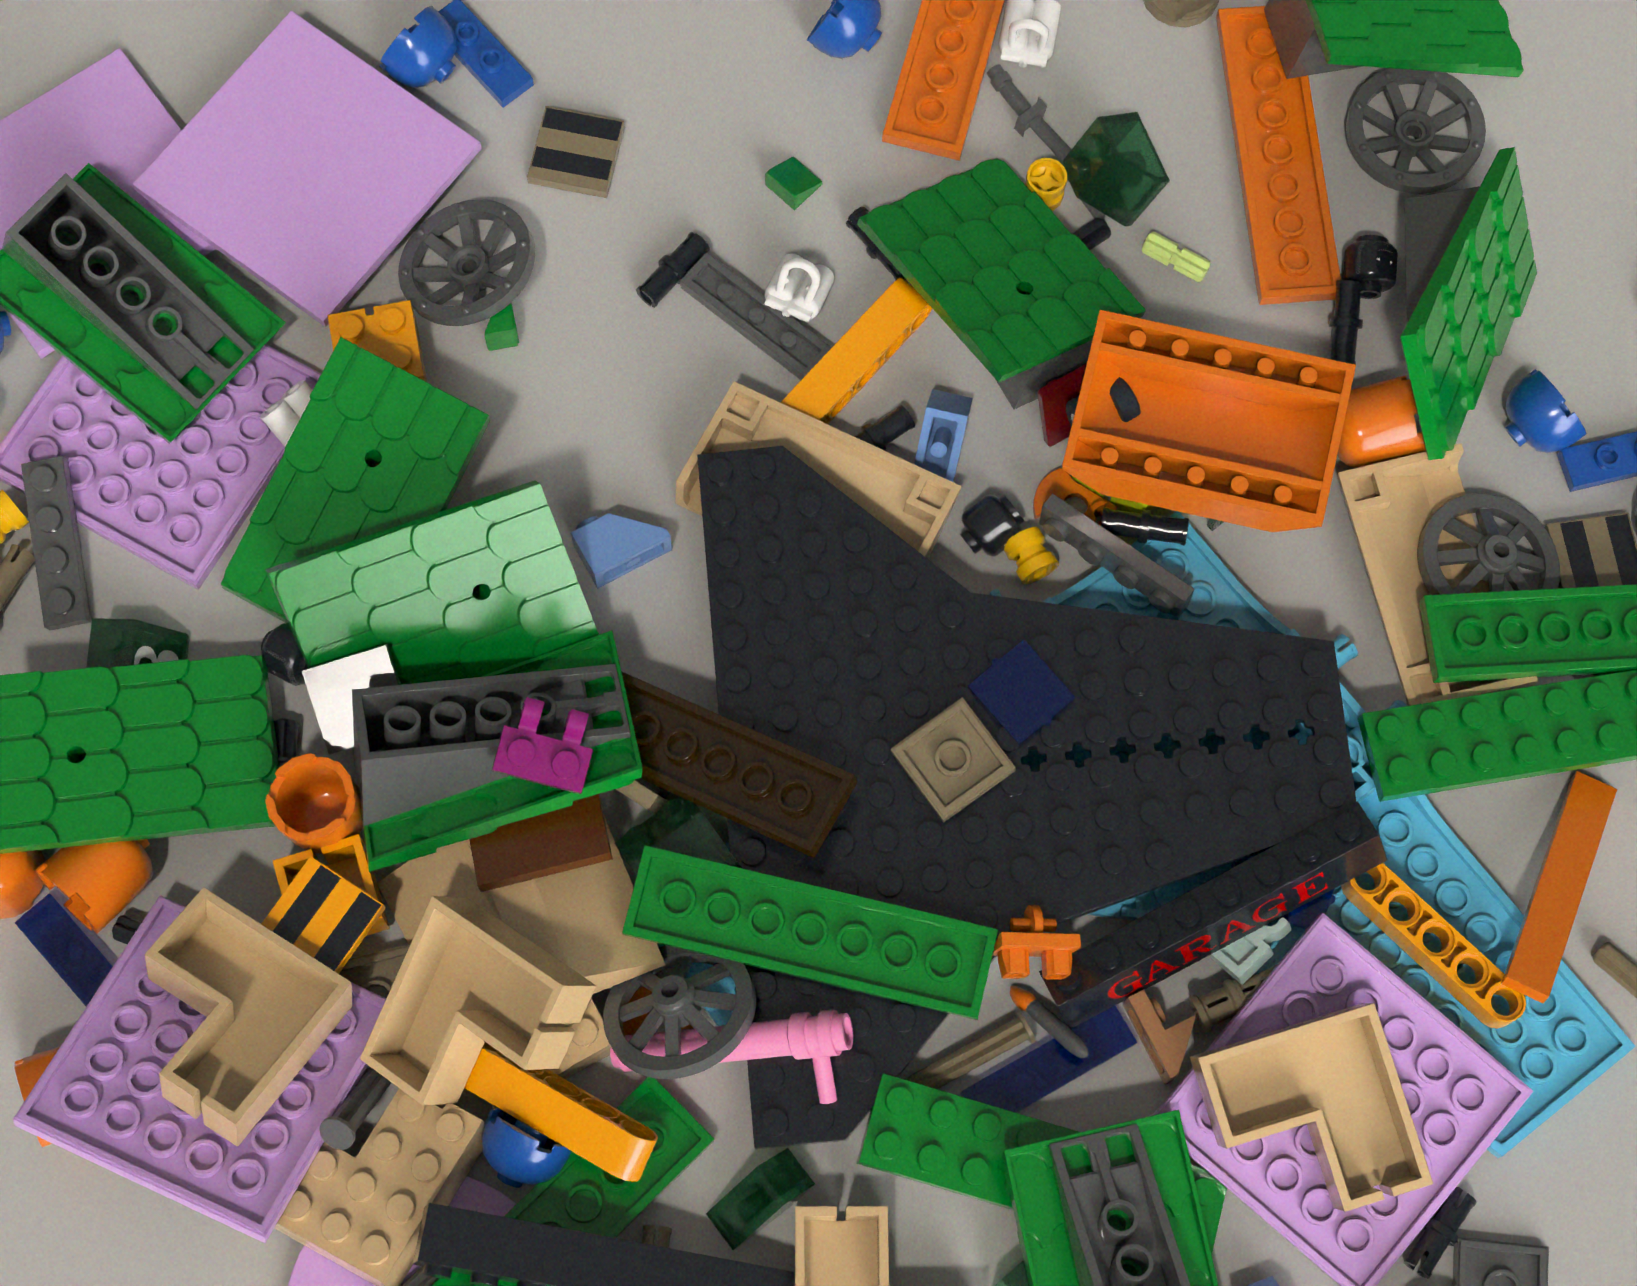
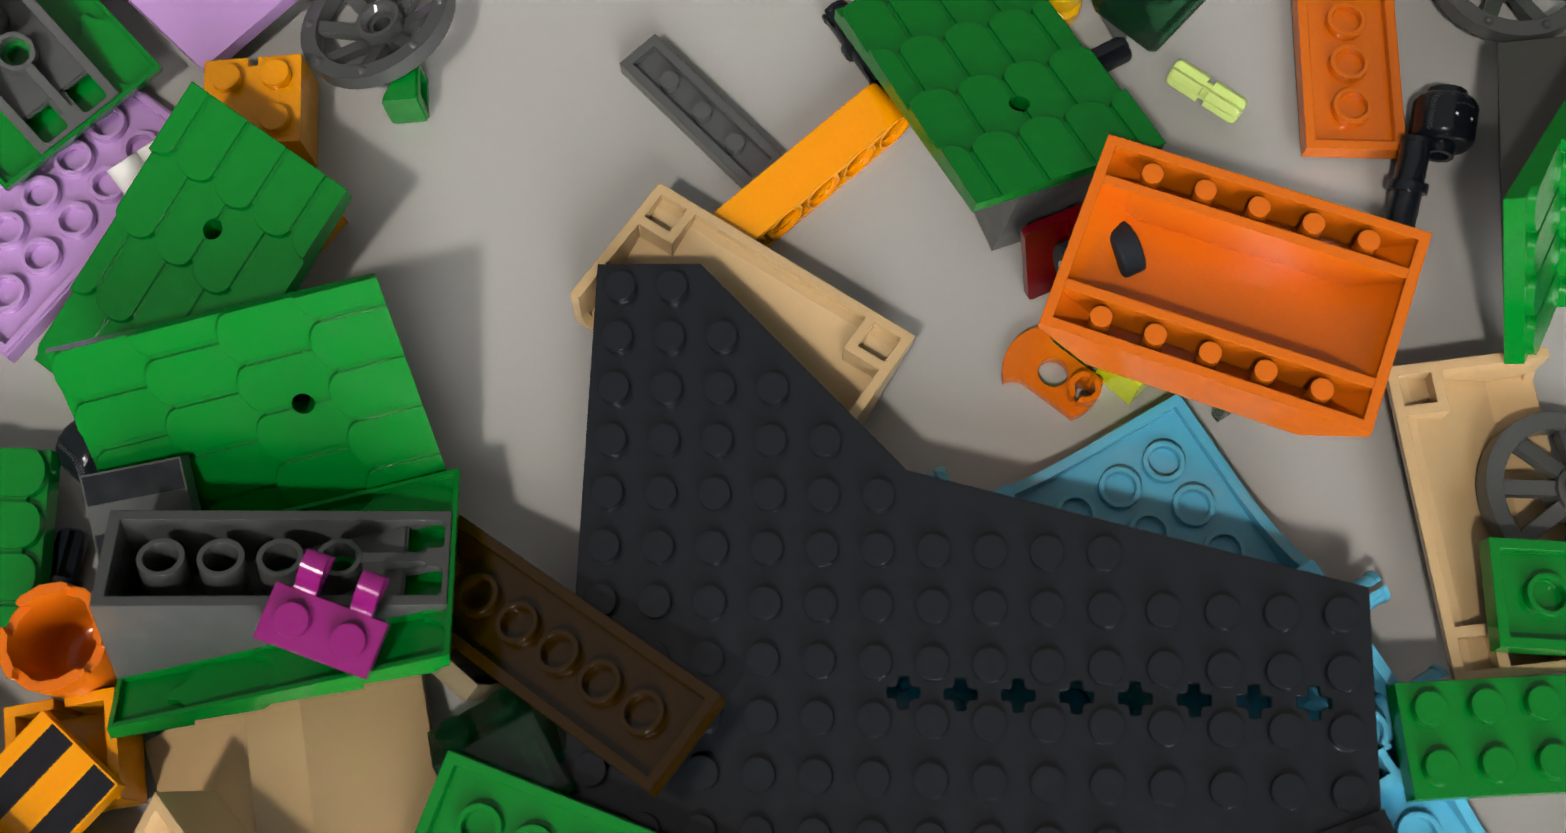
camera: 15 degrees right, 0 degrees up
(542, 845) = (324, 733): reddish brown tile -> none
(617, 546) = (496, 364): medium blue slope -> none
(672, 269) = (612, 50): black pin -> none
(798, 287) = (754, 82): white piece -> none
(887, 428) = (836, 258): black pin -> none
(943, 433) = (902, 270): medium blue slope -> none
(953, 759) = (855, 684): dark tan tile -> none
(990, 524) = (947, 386): black head -> none
(1021, 692) = (954, 606): clear blue piece -> none
(1032, 558) = (991, 430): yellow wheel -> none
(1125, 563) = (1108, 453): dark grey plate -> none
(1145, 526) = (1135, 408): black pin -> none
(1380, 424) = (1452, 313): orange cylinder -> none

